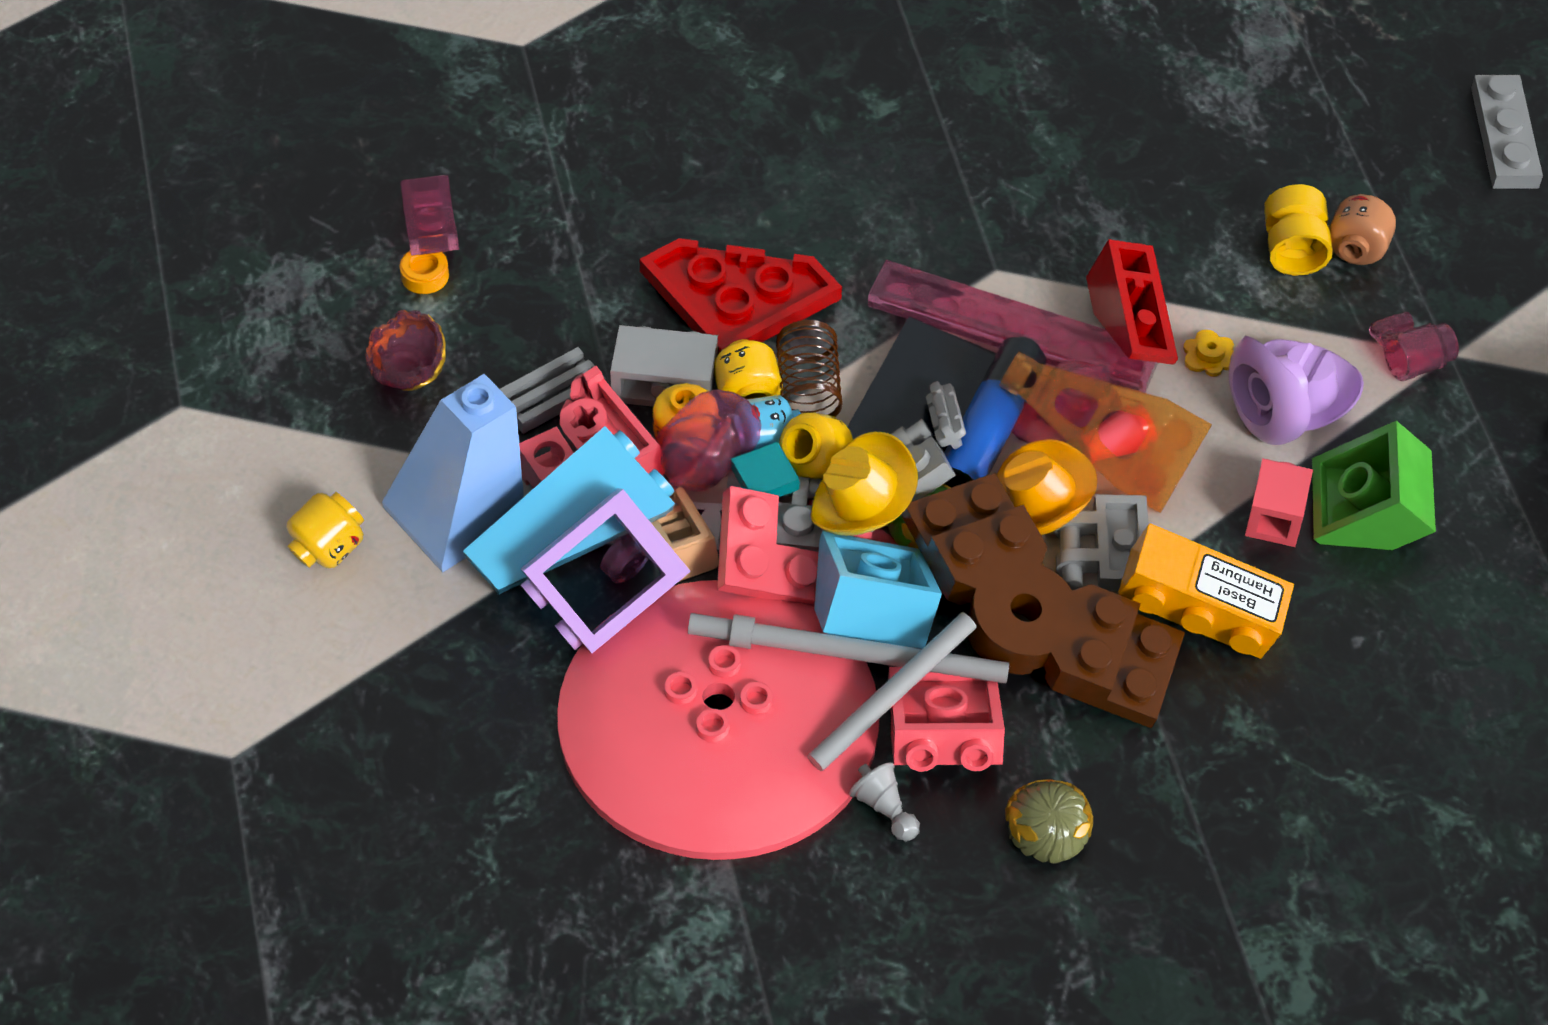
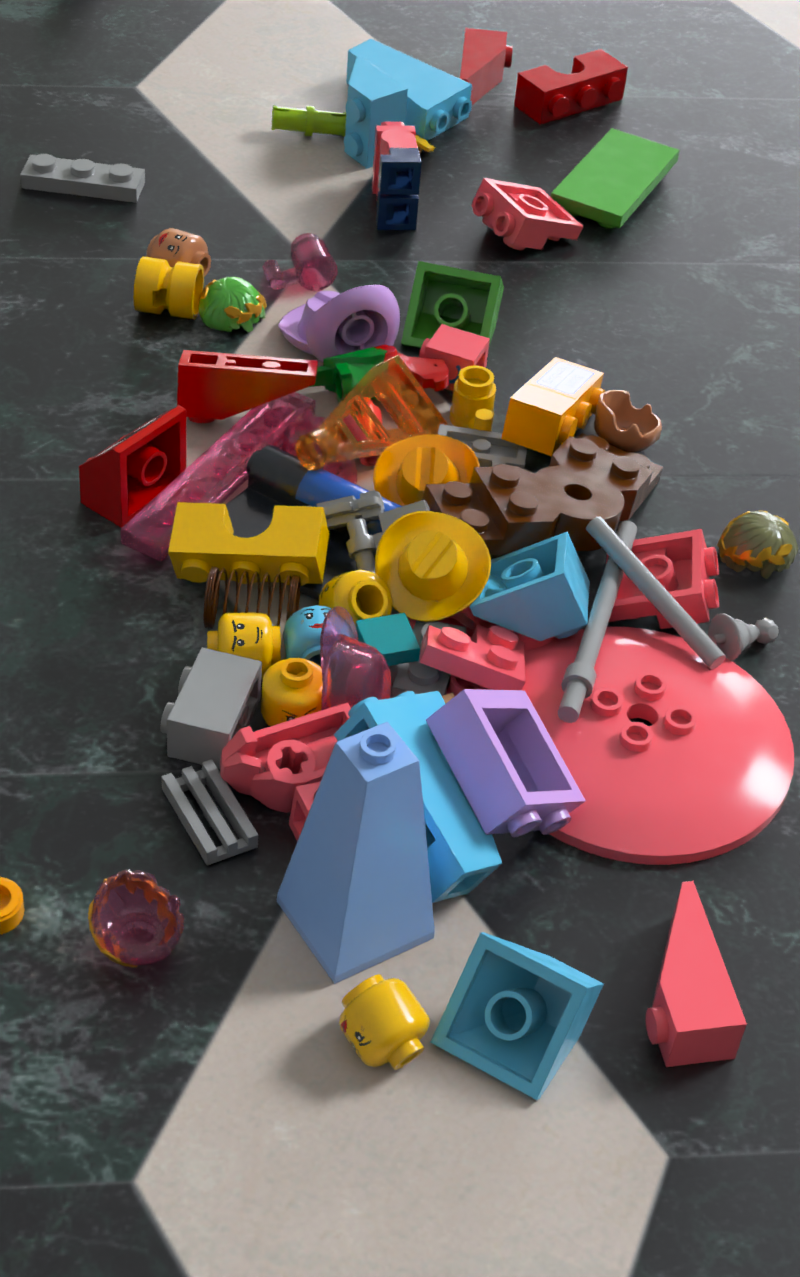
camera: 85 degrees left, 10 degrees down
(347, 627) = (516, 1013): none -> medium azure slope
(394, 752) = (694, 1002): none -> coral slope
(738, 289) = (118, 645): red plate -> none
(871, 355) = (289, 546): none -> yellow arch
(973, 251) = (135, 468): none -> red slope
(1205, 519) = (473, 399): none -> yellow piece
(1218, 670) = (624, 424): none -> nougat hair
(1227, 441) = (345, 370): none -> green animal
(1307, 294) = (231, 304): none -> bright green hair

